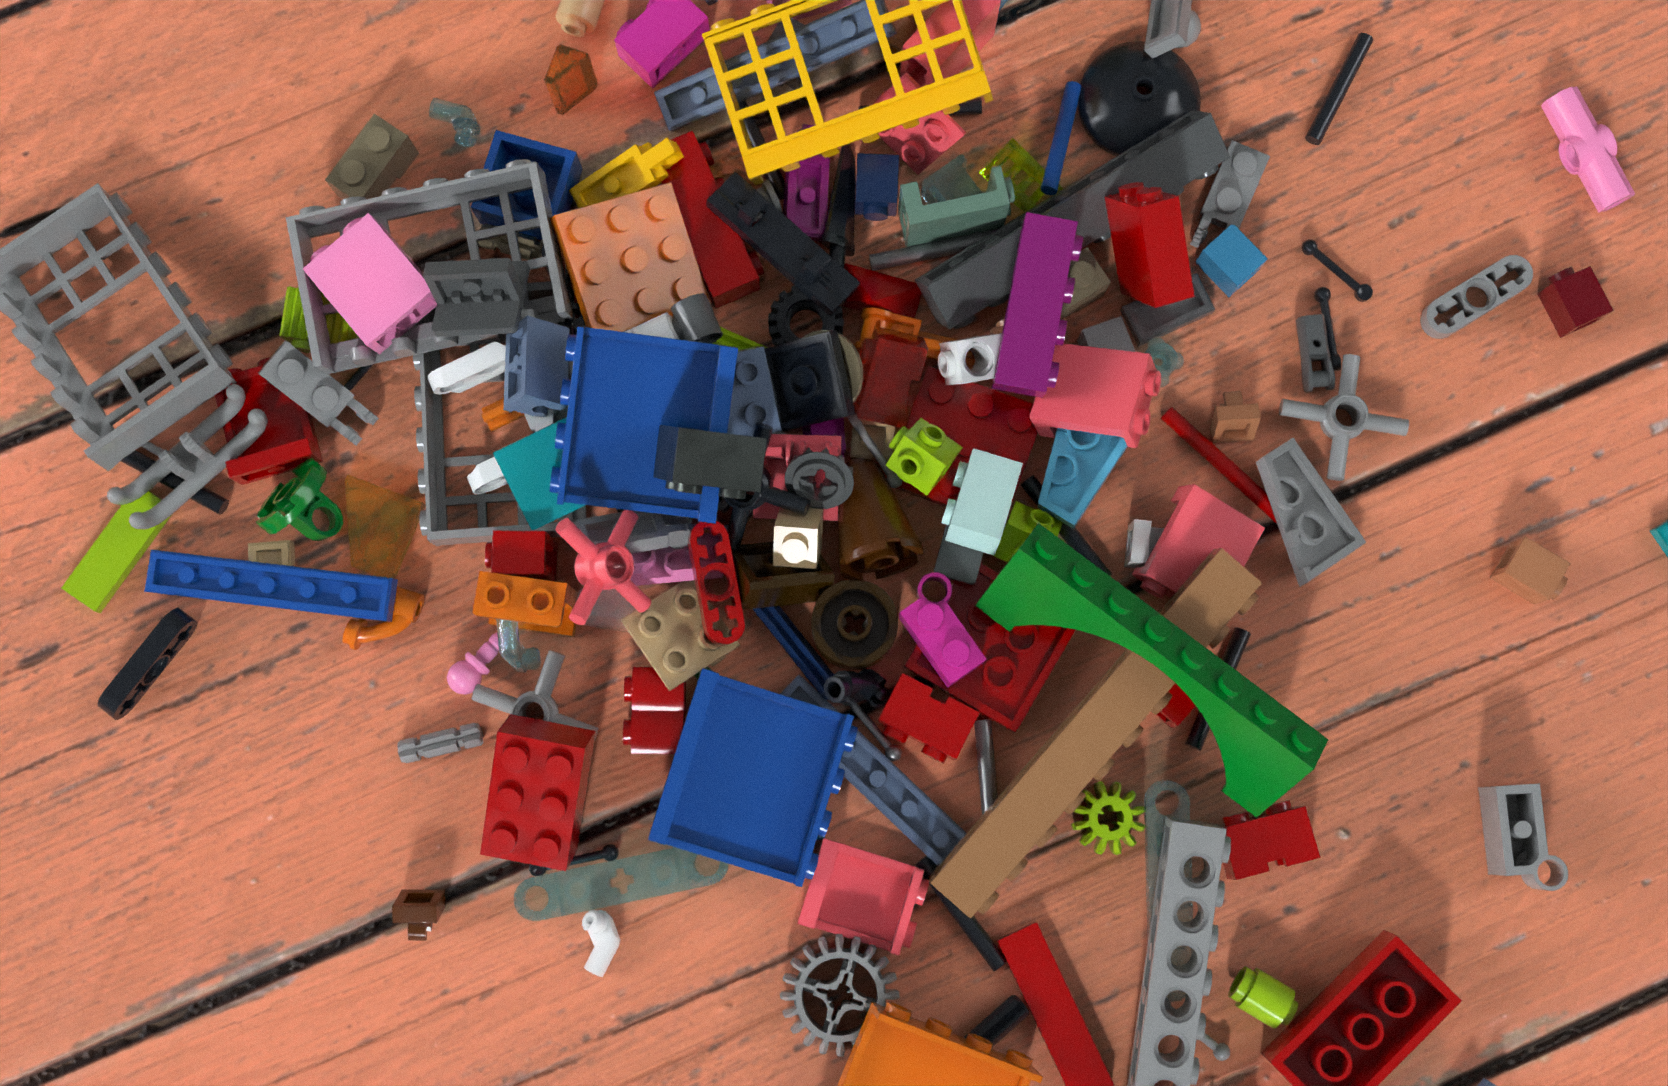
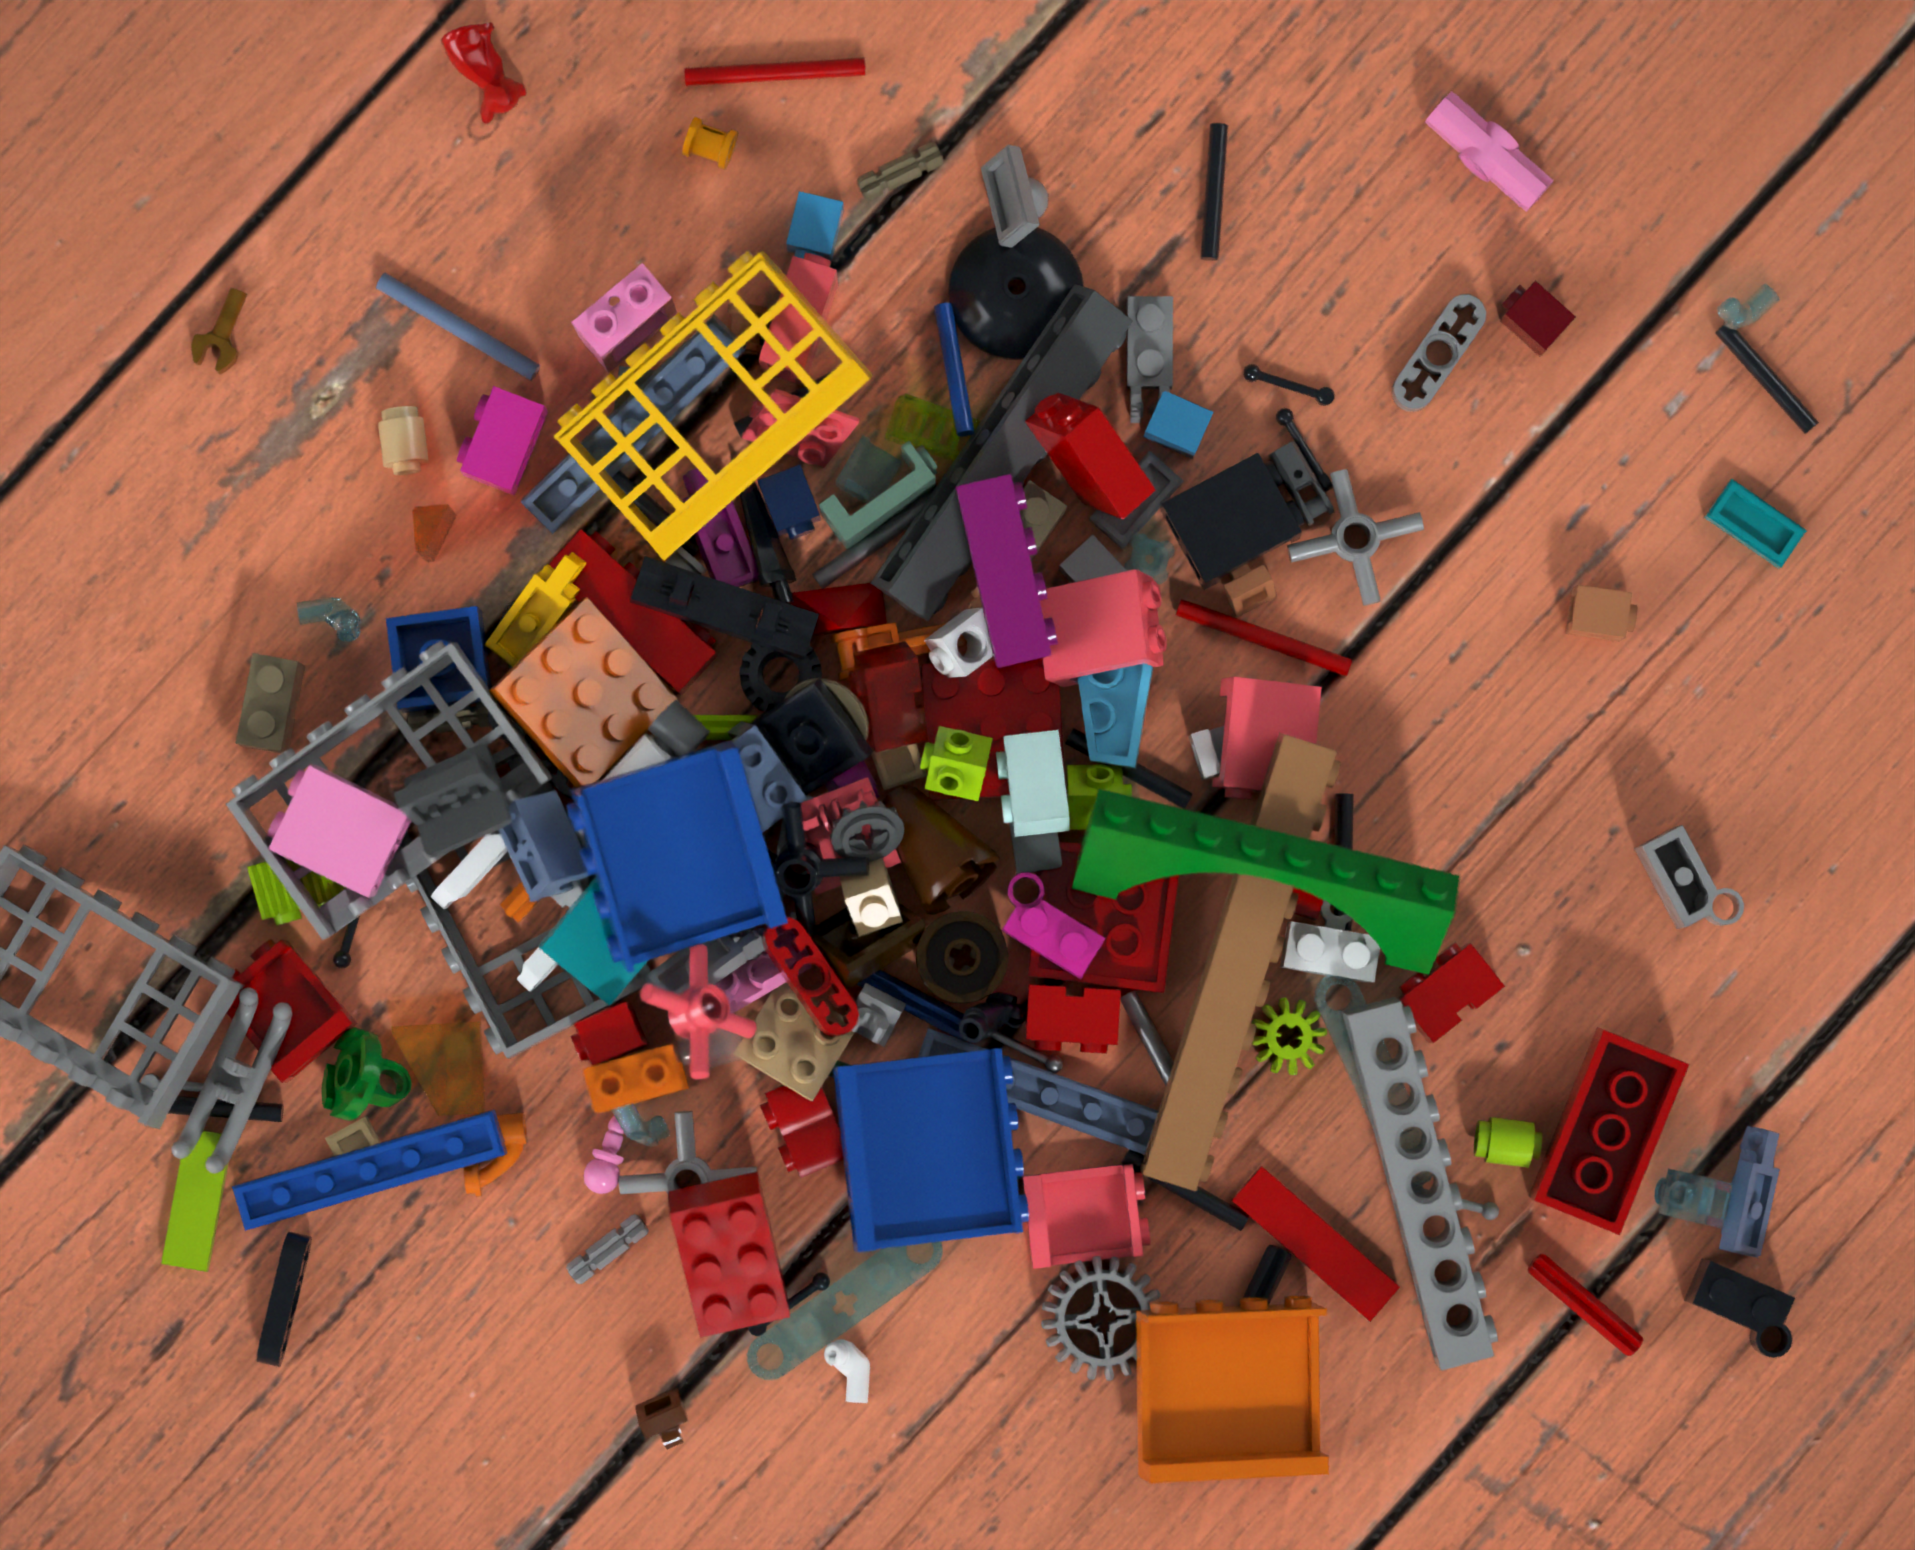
camera: 30 degrees left, 5 degrees up
(313, 390) = (325, 960): light grey hinge -> none
(707, 458) = (748, 870): pearl dark grey brick -> none
(759, 642) = (877, 1014): none -> light grey tile
(892, 478) = (936, 797): light grey hinge -> none
(1178, 757) = (1330, 949): none -> white brick
(1244, 356) = (1232, 519): none -> black panel
(1306, 512) = (1357, 650): light grey wing -> none

